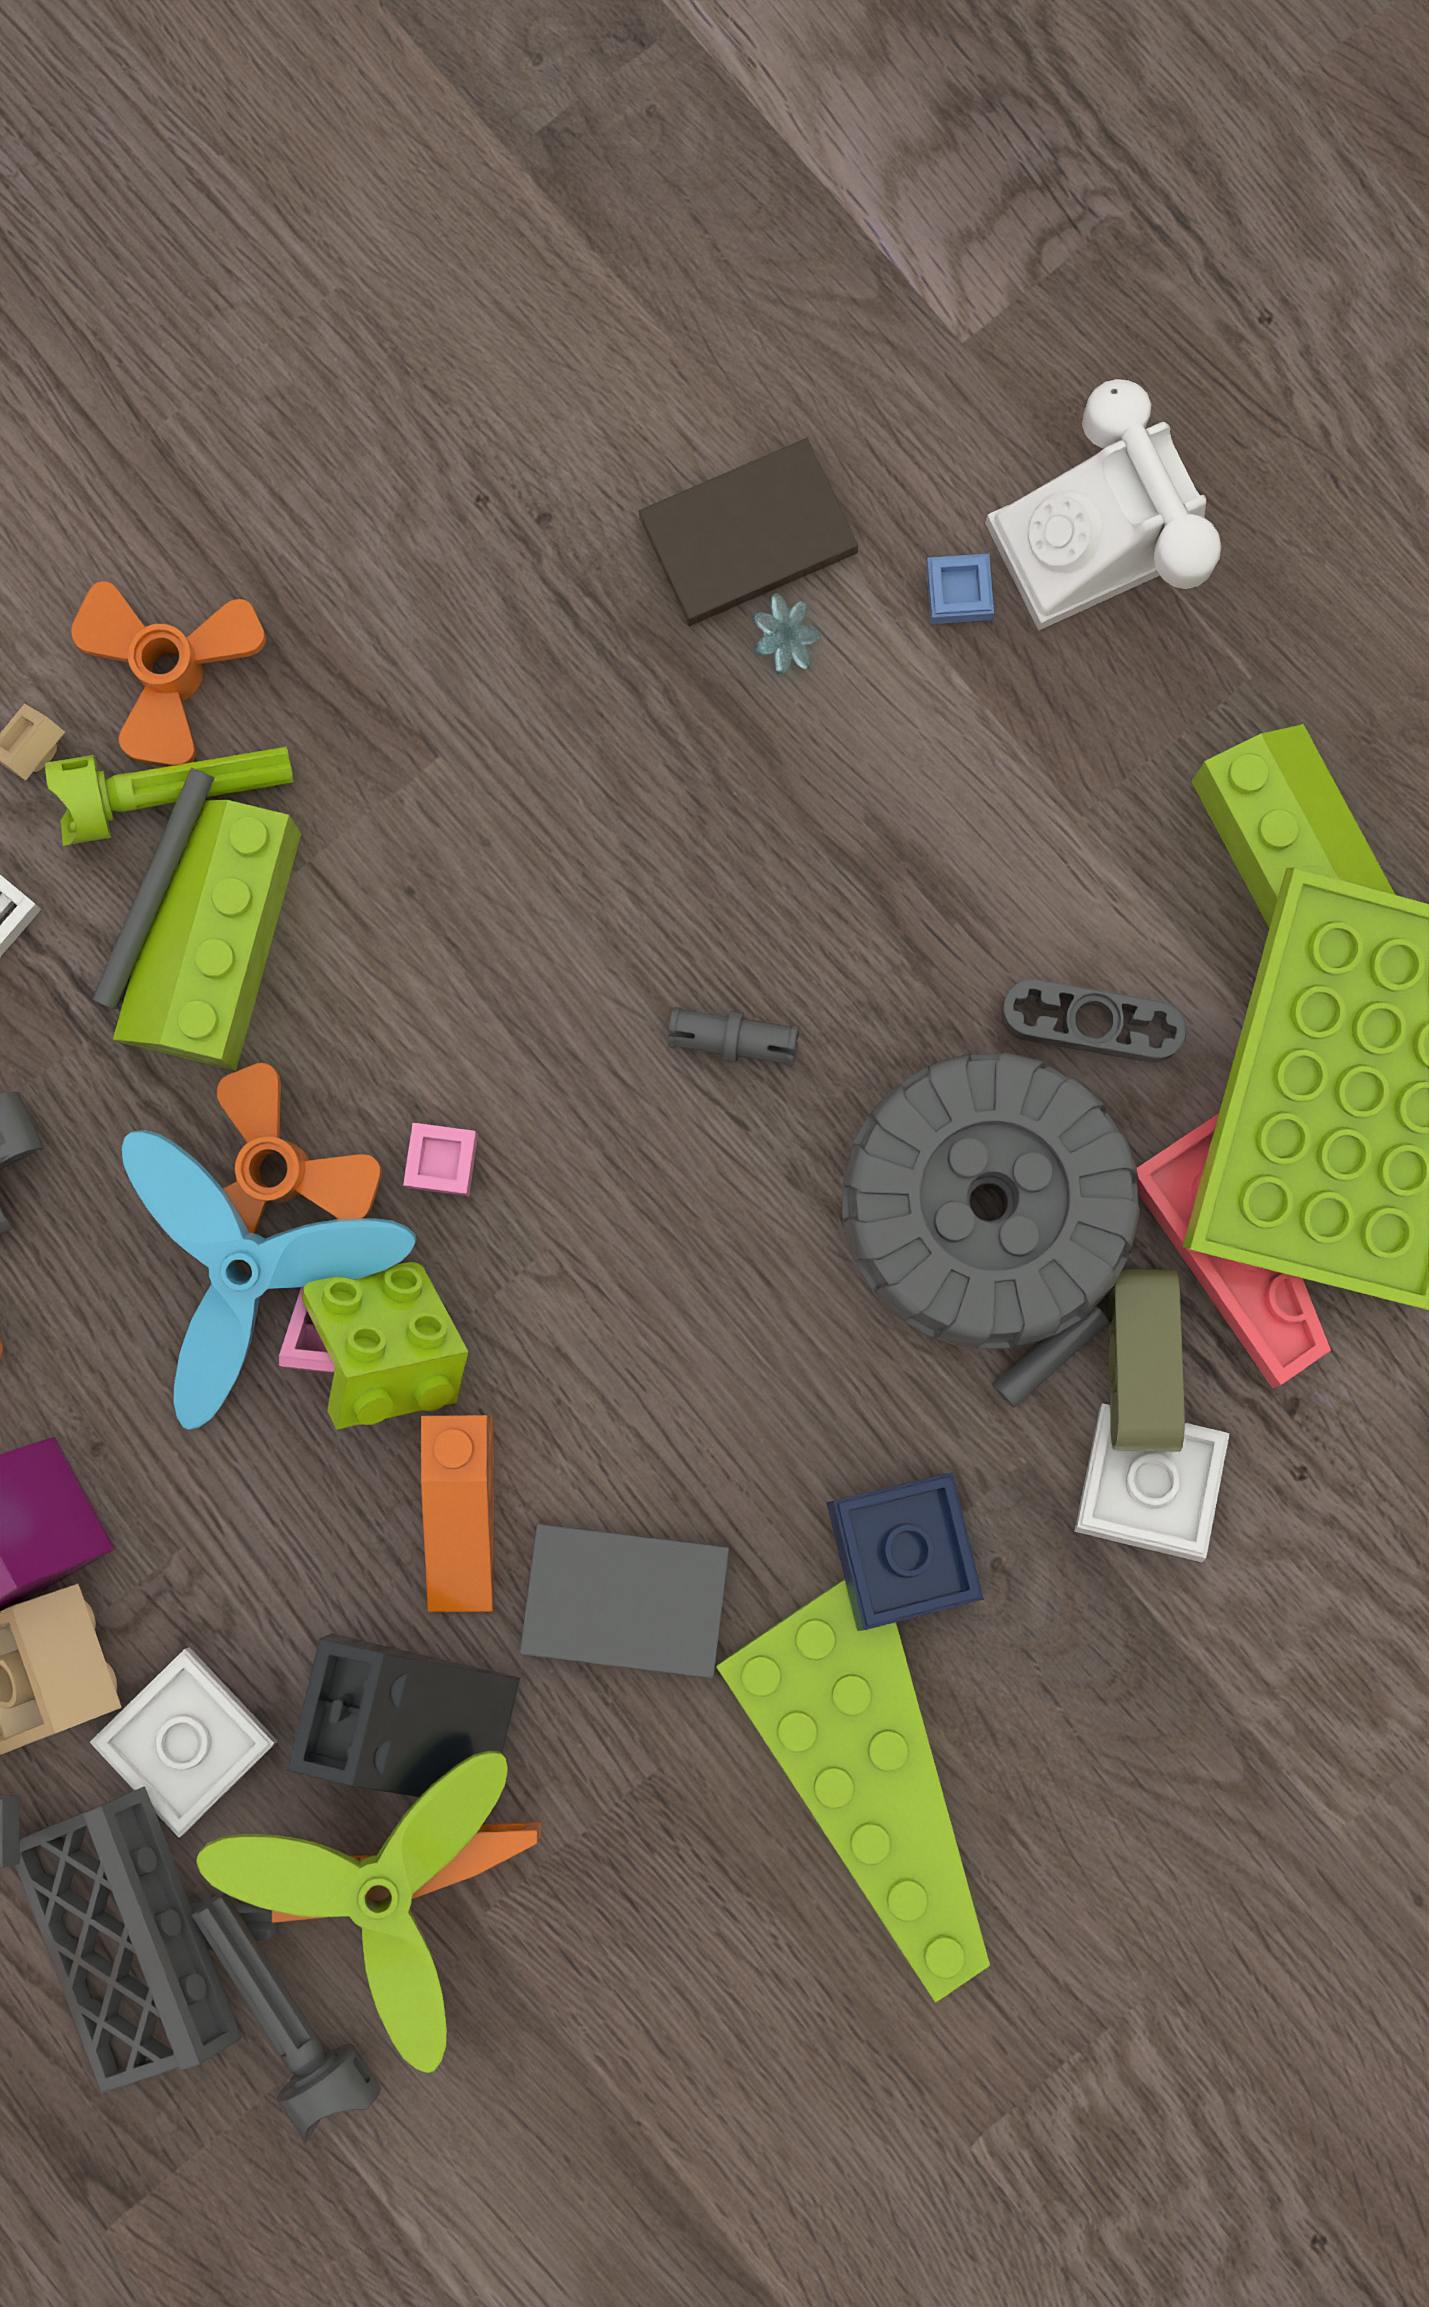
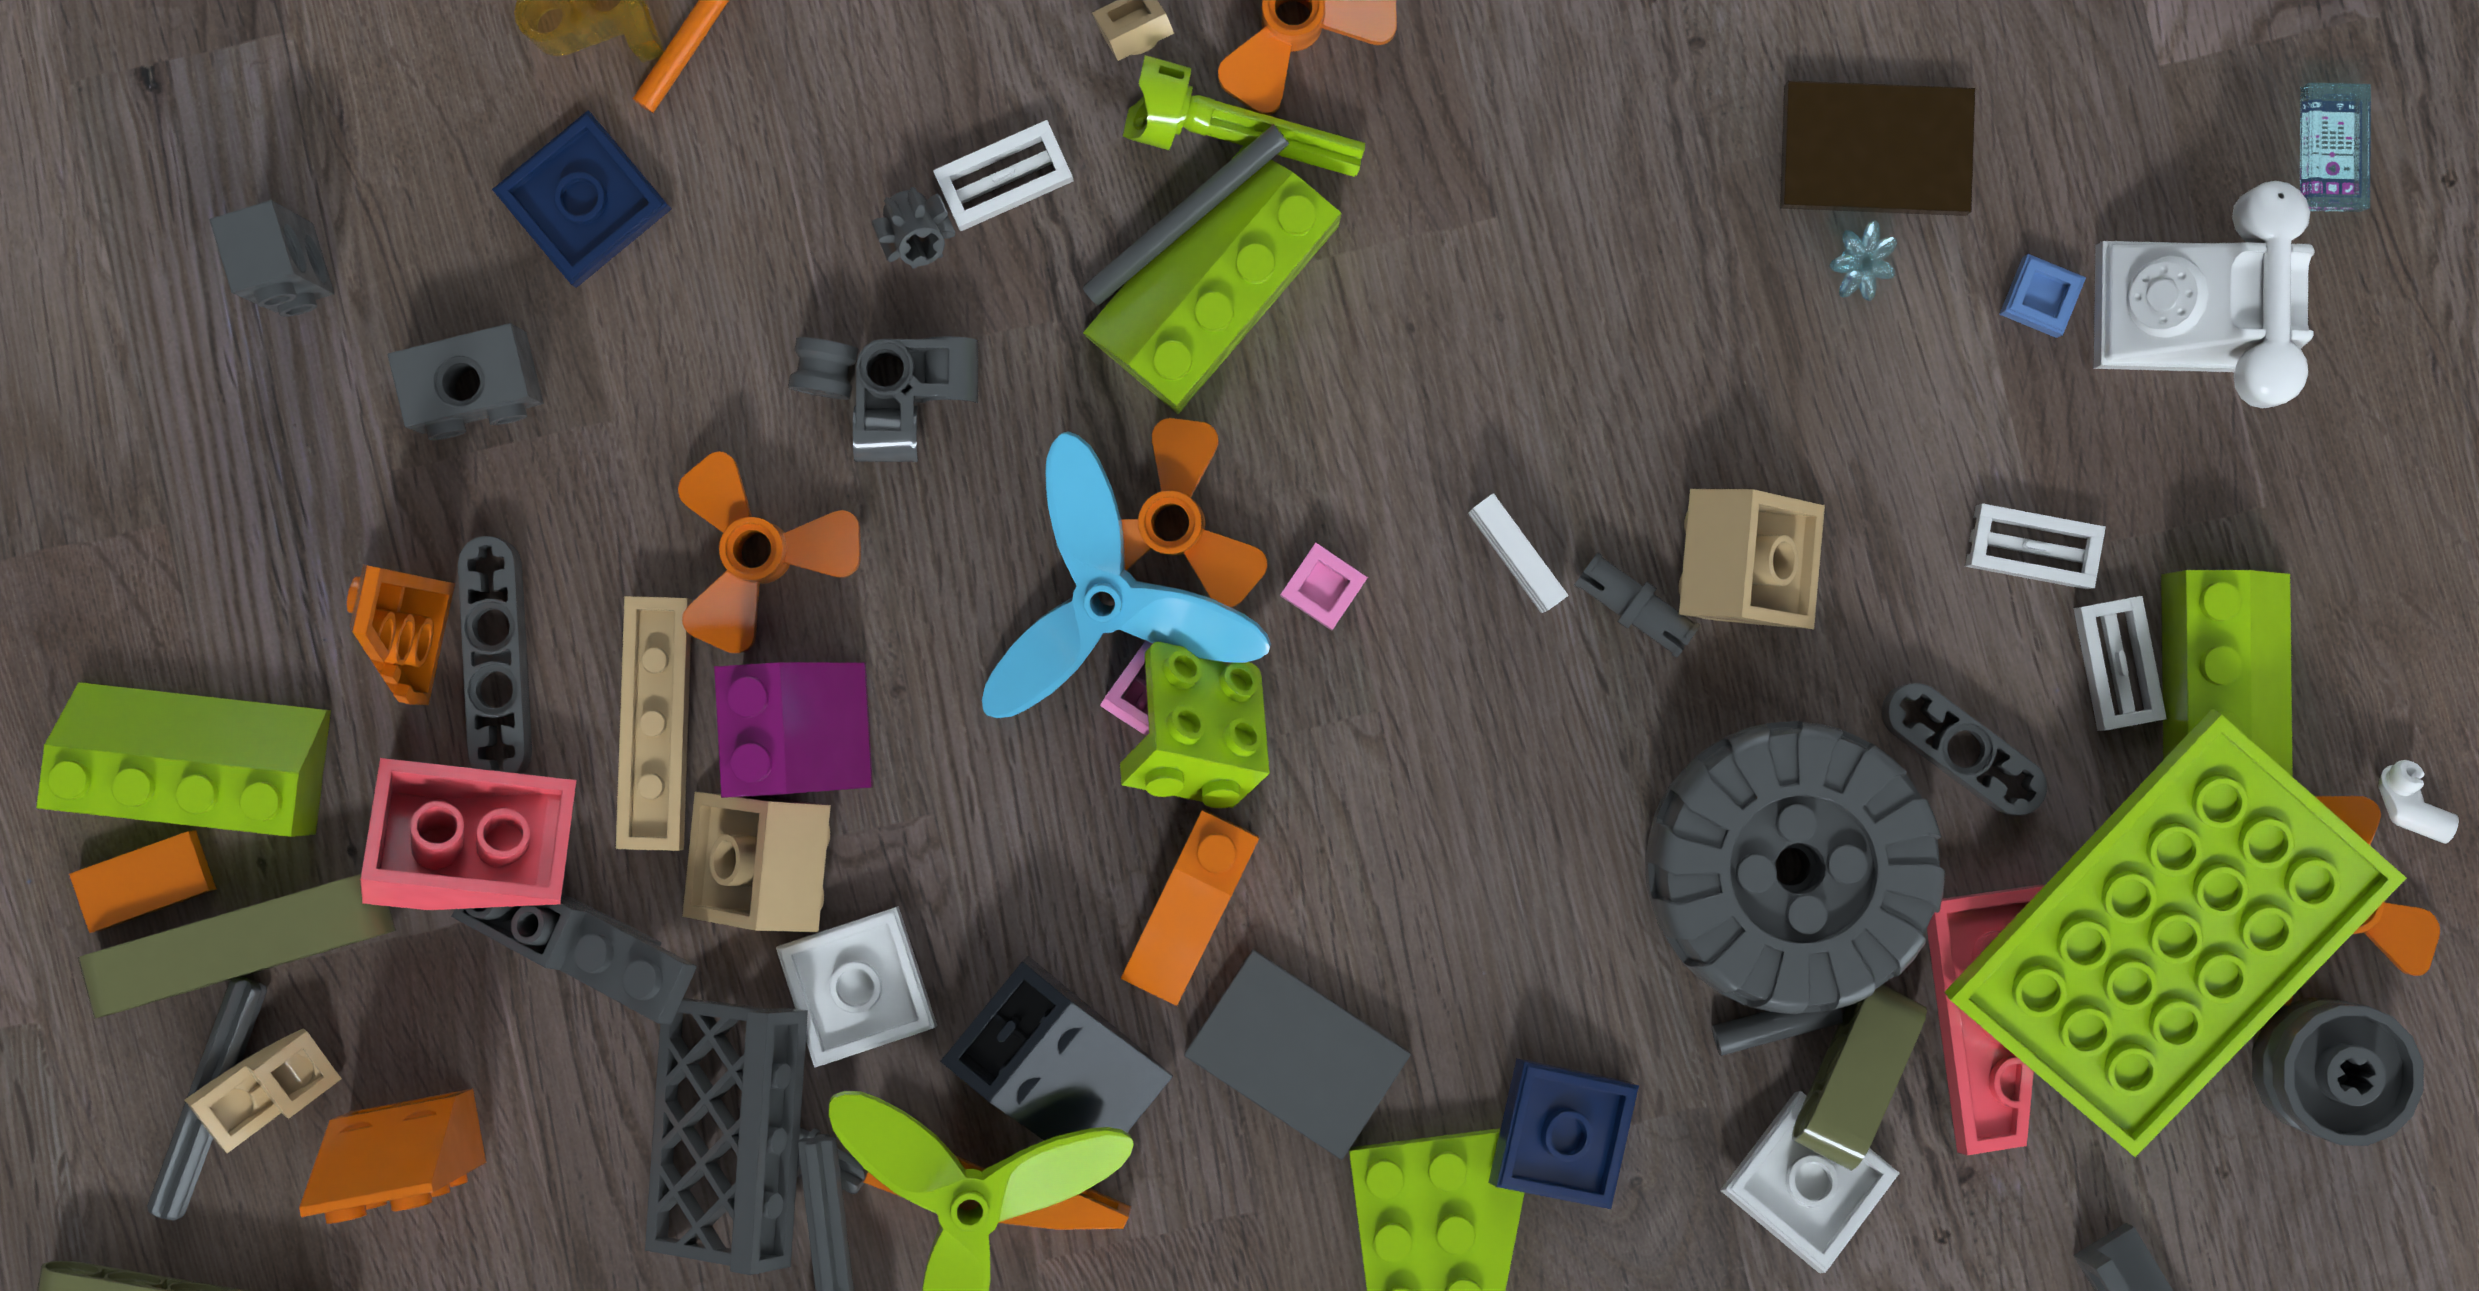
camera: 20 degrees right, 5 degrees up
(601, 1042) = (1517, 553): none -> white tile
(815, 943) = (1751, 558): none -> tan slope
(1014, 825) = (1982, 537): none -> white tile
(1150, 336) = (2335, 146): none -> clear light blue tile
(1212, 861) = (2096, 670): none -> white tile

